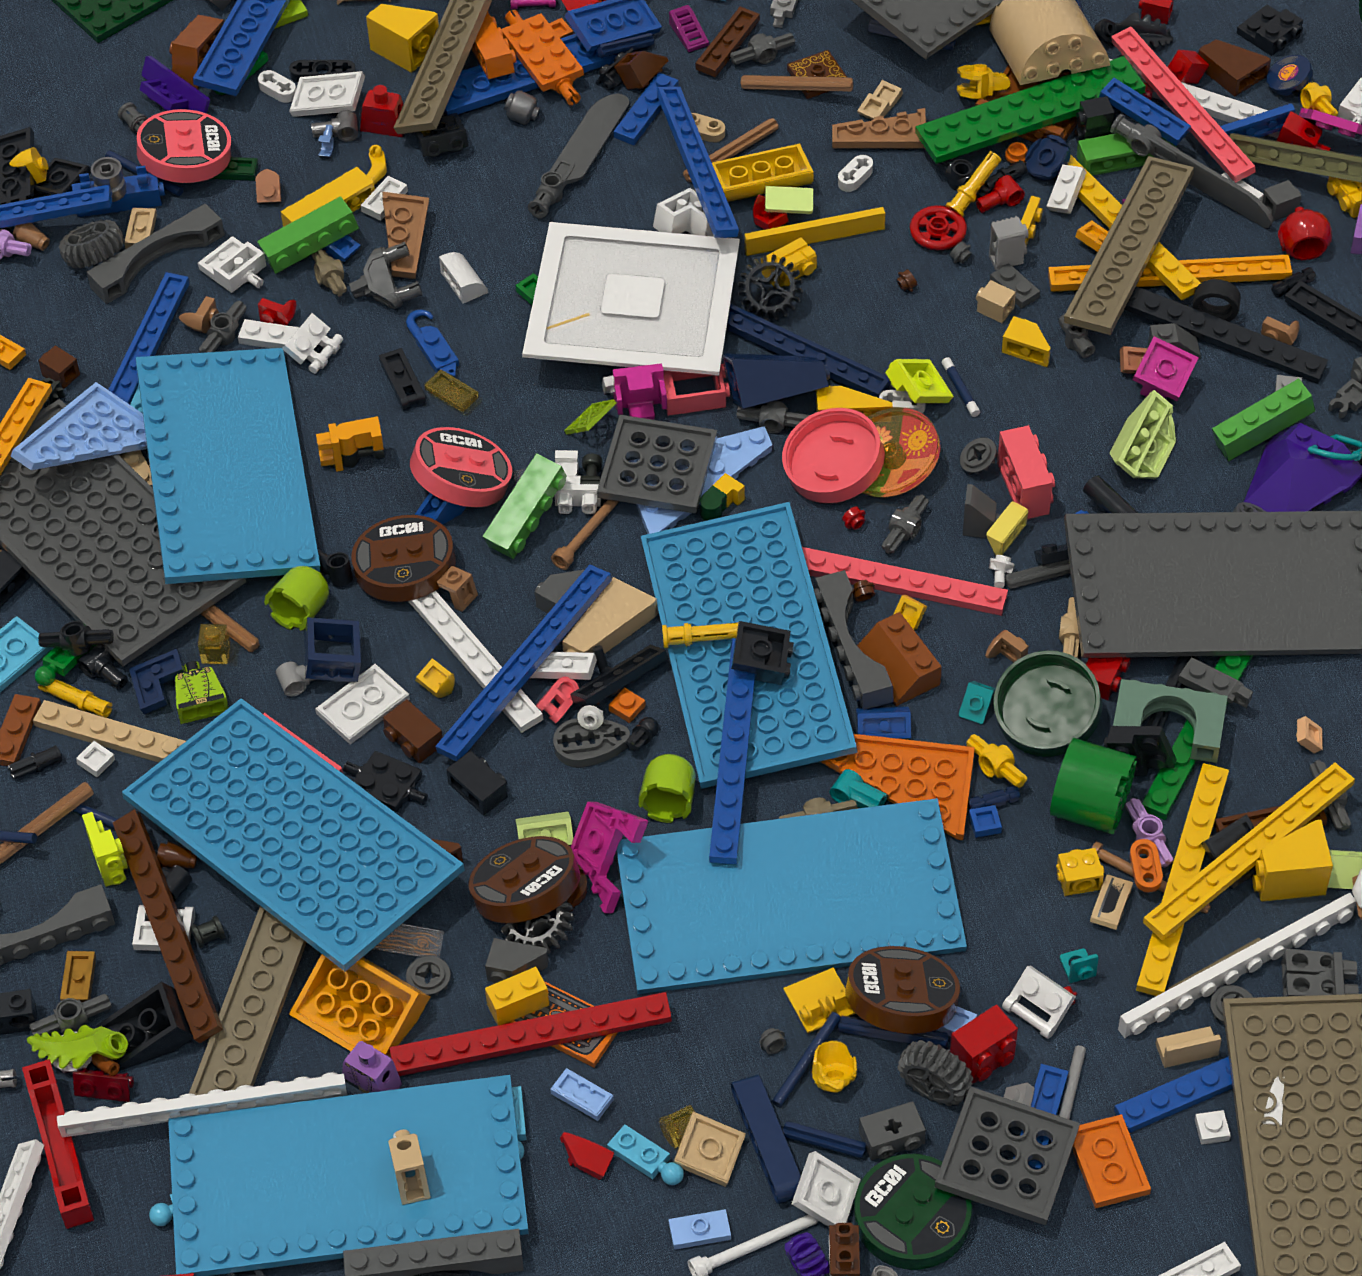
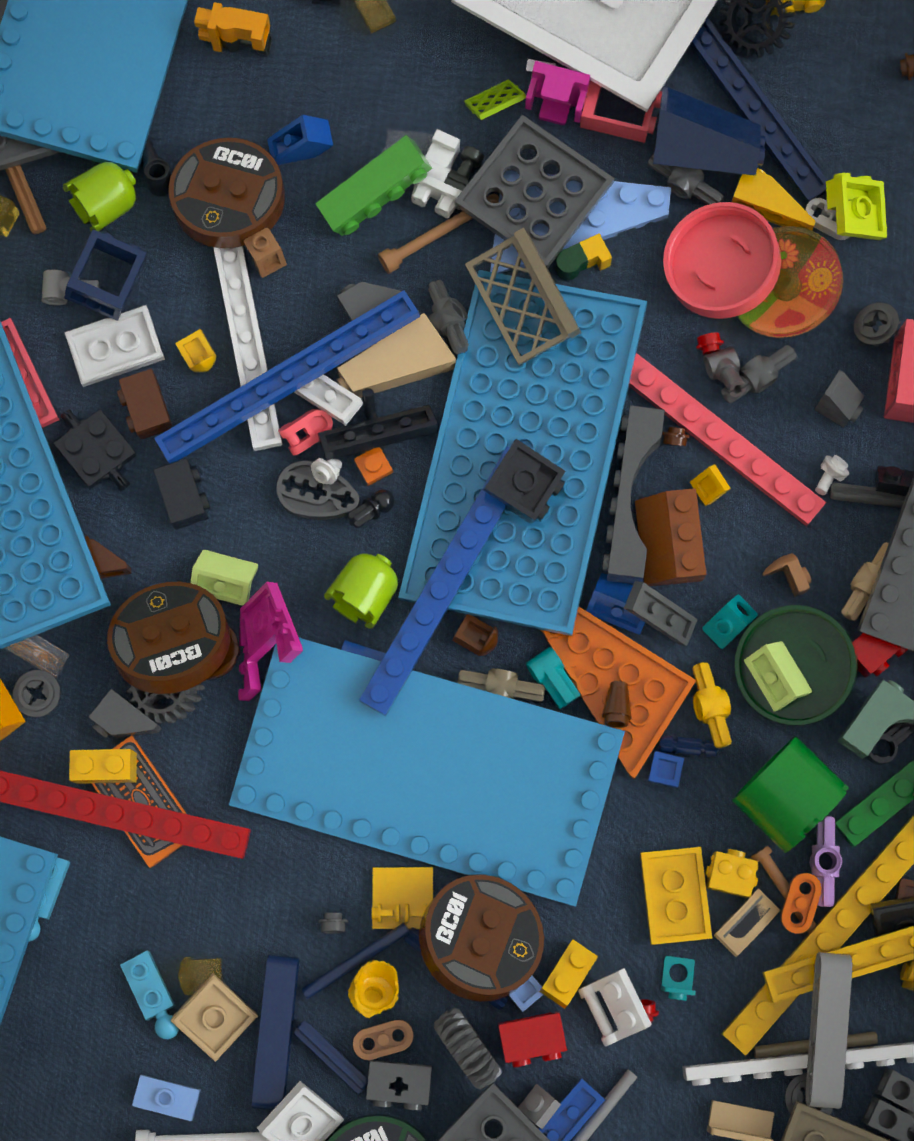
camera: 25 degrees right, 25 degrees up
(460, 467) = (330, 109): coral piece -> none
(582, 1094) = (121, 897): light blue plate -> none
(587, 1155) = (95, 967): red slope -> none
(634, 575) = (448, 316): none -> dark grey axle
(688, 634) = (466, 418): yellow pin -> none
(705, 518) = (545, 284): none -> dark tan fence
(780, 788) = (476, 636): none -> reddish brown plate
(858, 1107) = (383, 1038): none -> medium nougat plate
(877, 527) = (725, 367): none -> flat silver pin
(920, 706) = (660, 613): none -> dark grey plate
(921, 784) = (617, 705): none -> reddish brown cone
(960, 387) = (902, 226): dark blue bar -> none
(987, 992) = (568, 974): none -> yellow plate
(1007, 527) = (861, 427): light yellow slope -> none
(1035, 713) = (777, 675): none -> yellowish green panel
(1043, 906) = (675, 895): none -> yellow plate
(1144, 742) = (858, 767): black plate -> none
(1218, 933) = (828, 1030): none -> light grey beam

